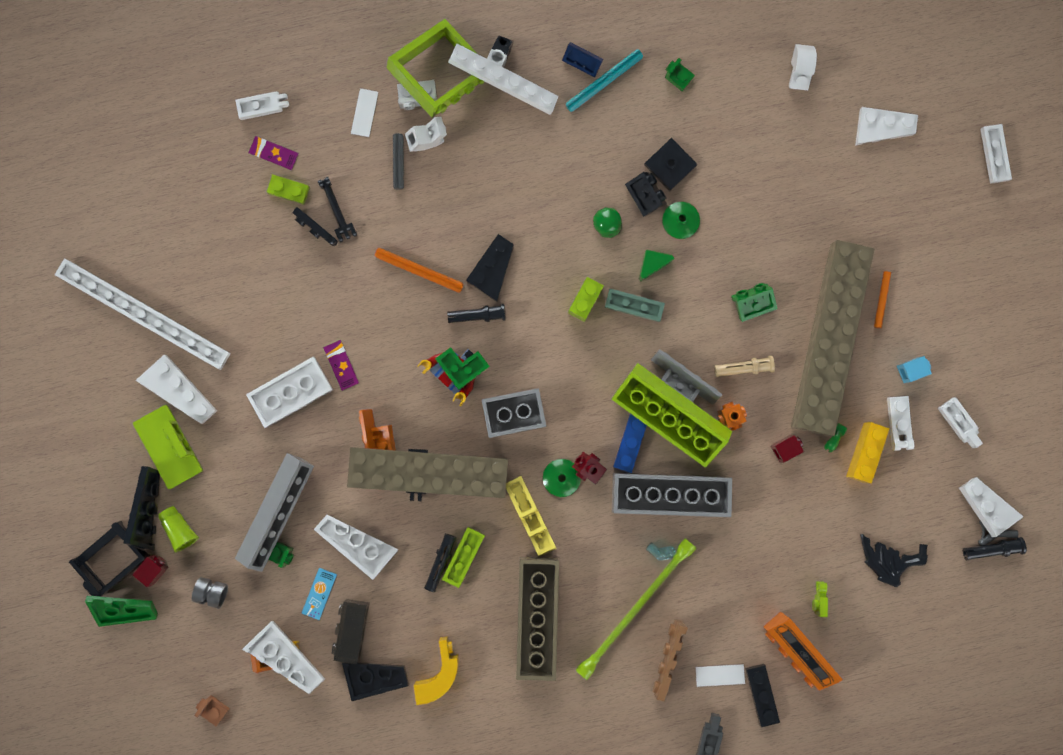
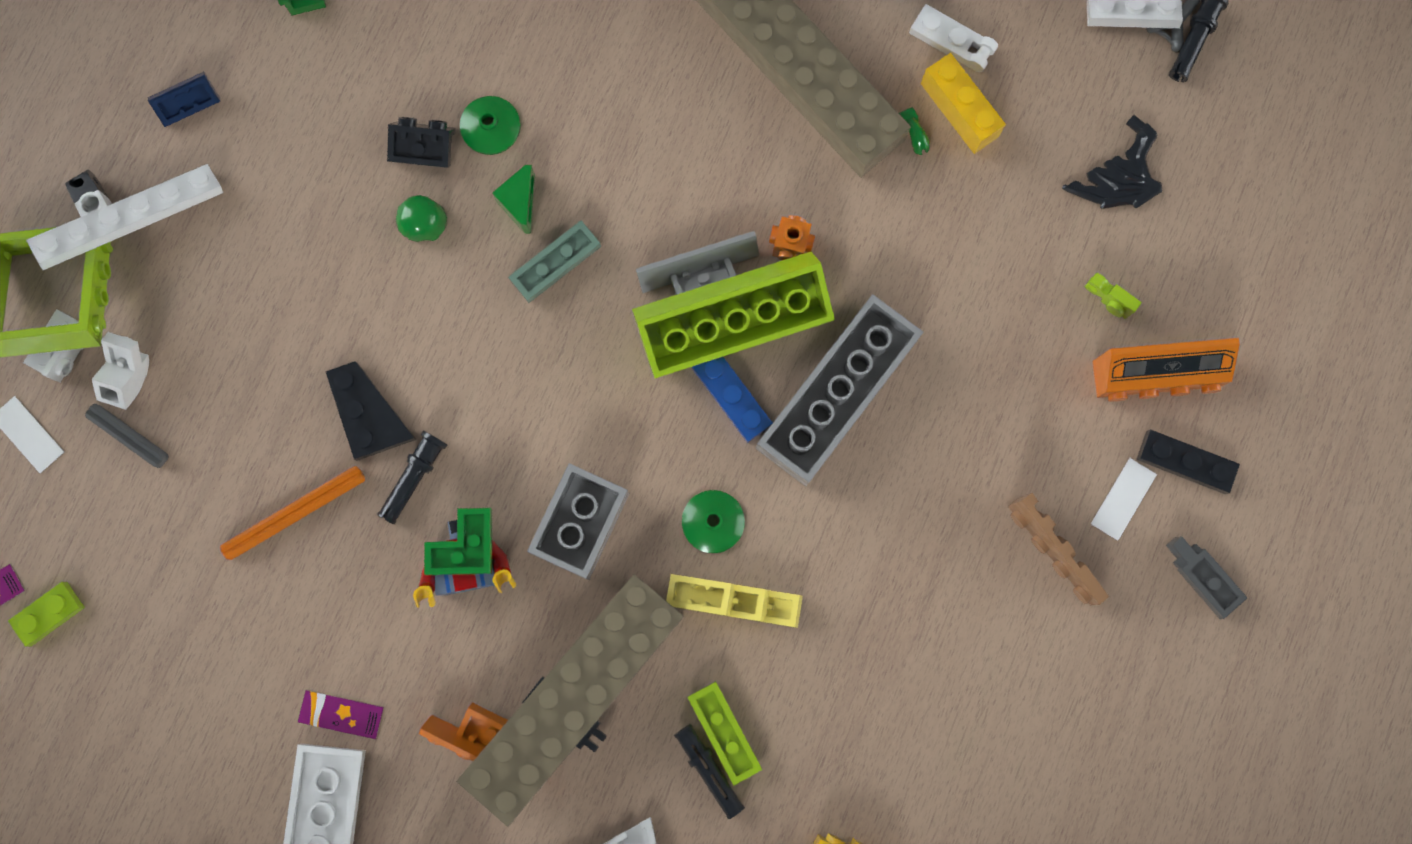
camera: 50 degrees left, 5 degrees down
(316, 230) = (129, 614): black hinge -> none
(344, 228) = (158, 574): black hinge -> none
(537, 619) = (880, 690): dark tan brick -> none
(585, 299) = (498, 318): lime brick -> none
(588, 666) = (992, 668): lime hose -> none
(589, 467) = (725, 473): dark red brick -> none
(604, 80) = (233, 92): teal axle -> none
(661, 553) = (908, 459): clear light blue arm -> none
(670, 164) = (407, 86): black plate -> none
(754, 366) = (746, 167): tan pin -> none
(755, 301) = (664, 106): green bracket -> none
(787, 448) = (885, 199): dark red brick -> none

